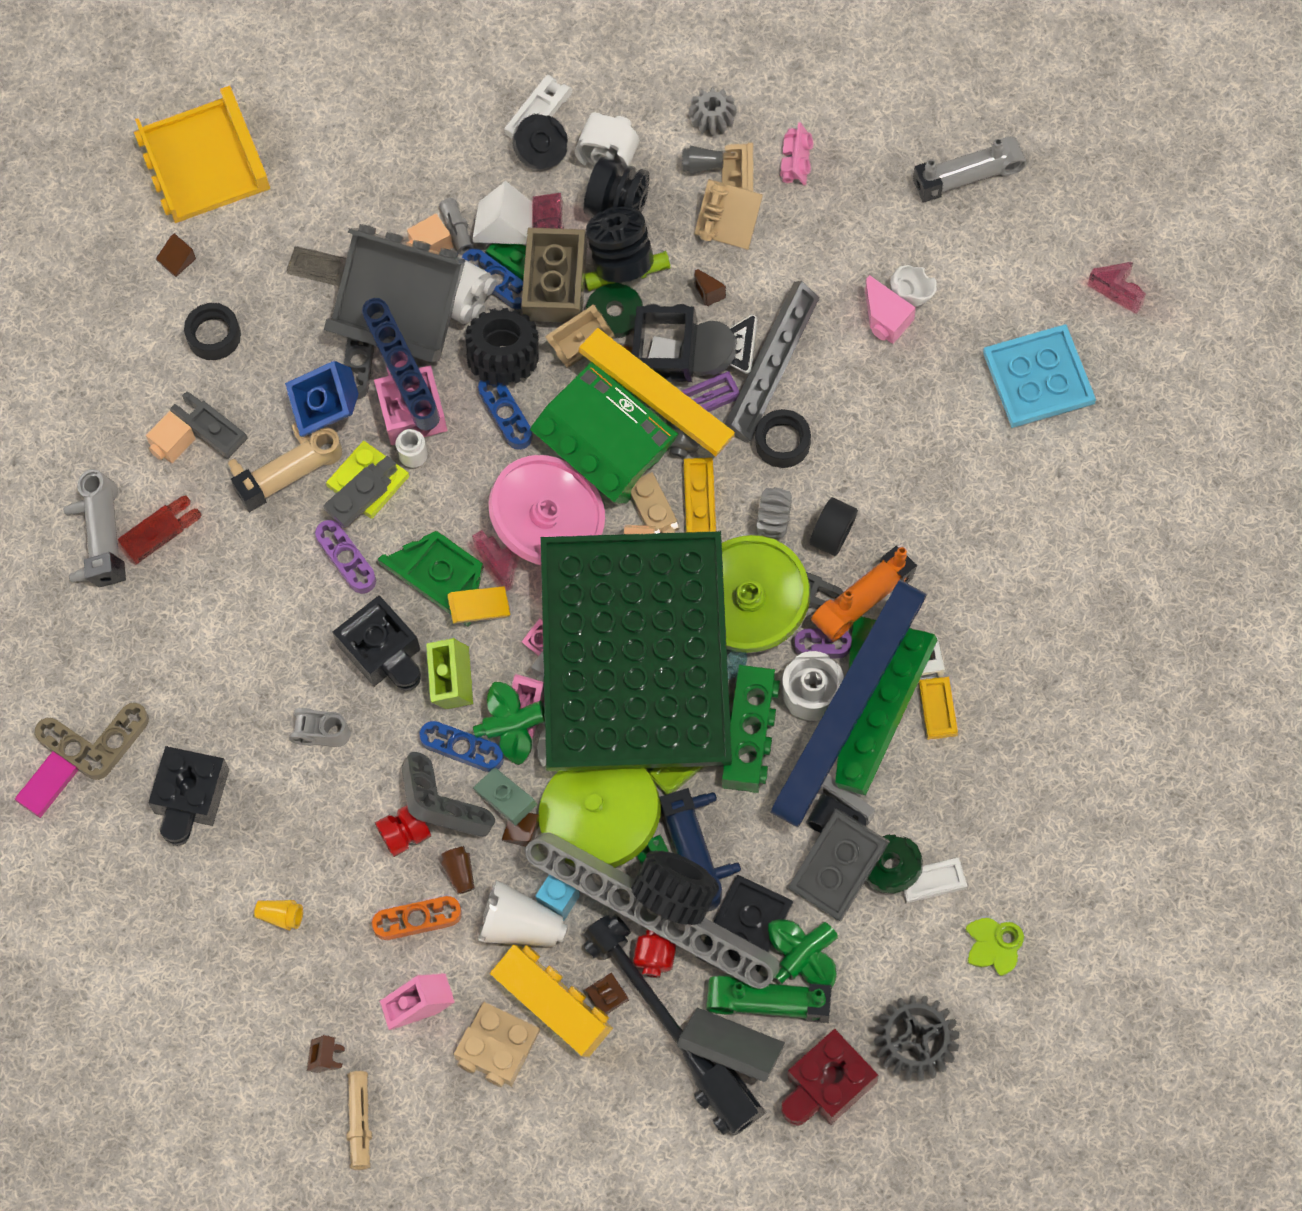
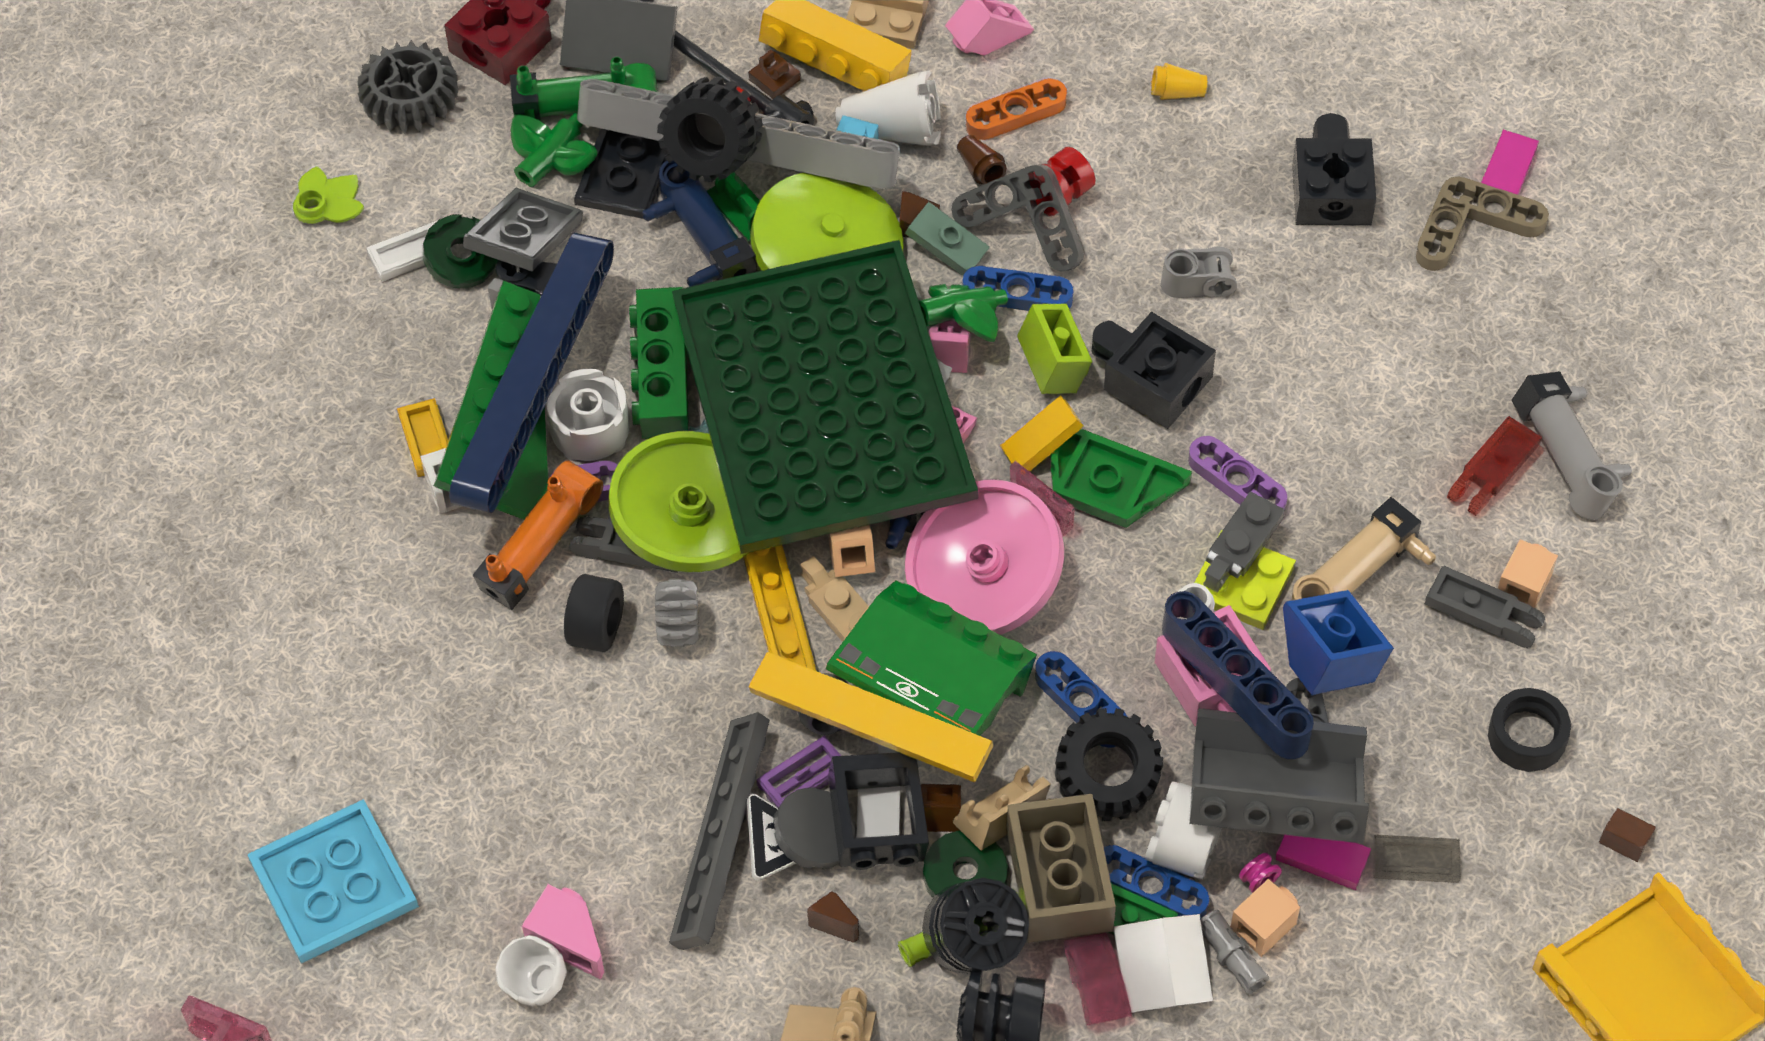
camera: 165 degrees right, 10 degrees down
(781, 459) = (685, 755): black tyre -> none

